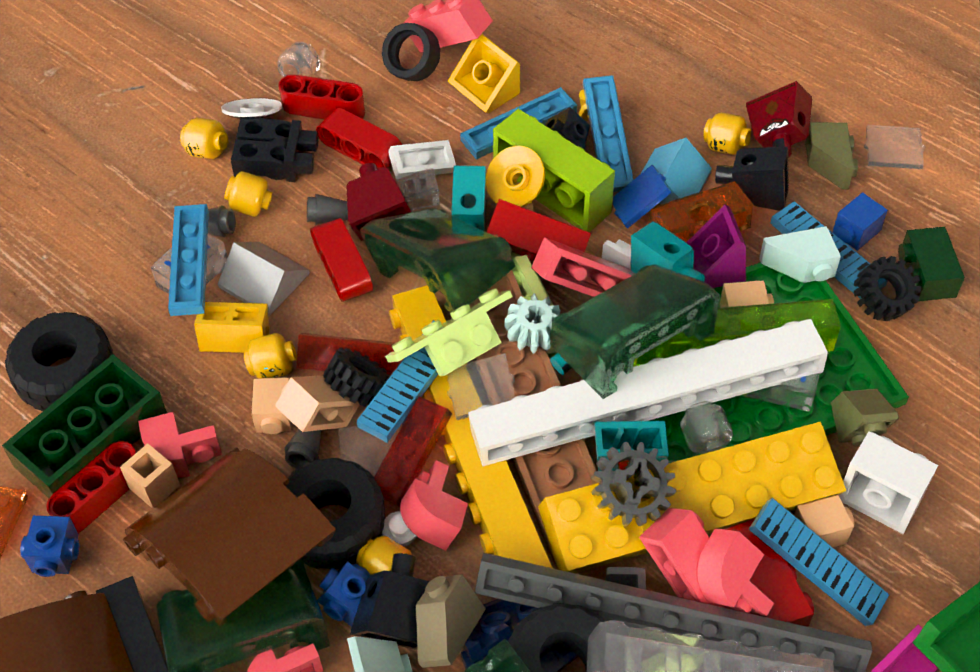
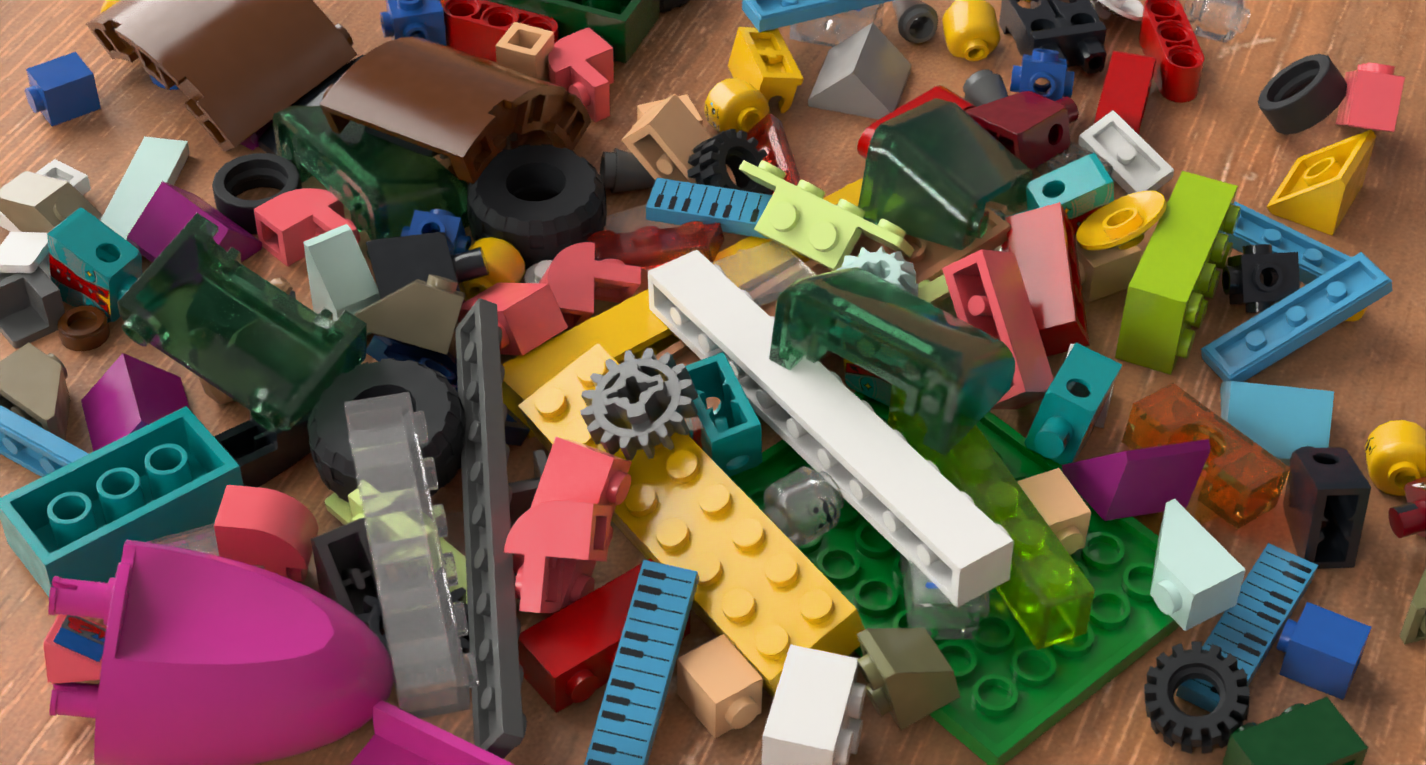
camera: 70 degrees right, 10 degrees down
(332, 173) = (1043, 64): none -> blue brick
(457, 551) = (525, 314): none -> coral brick
(640, 196) = (1195, 374): blue piece -> none

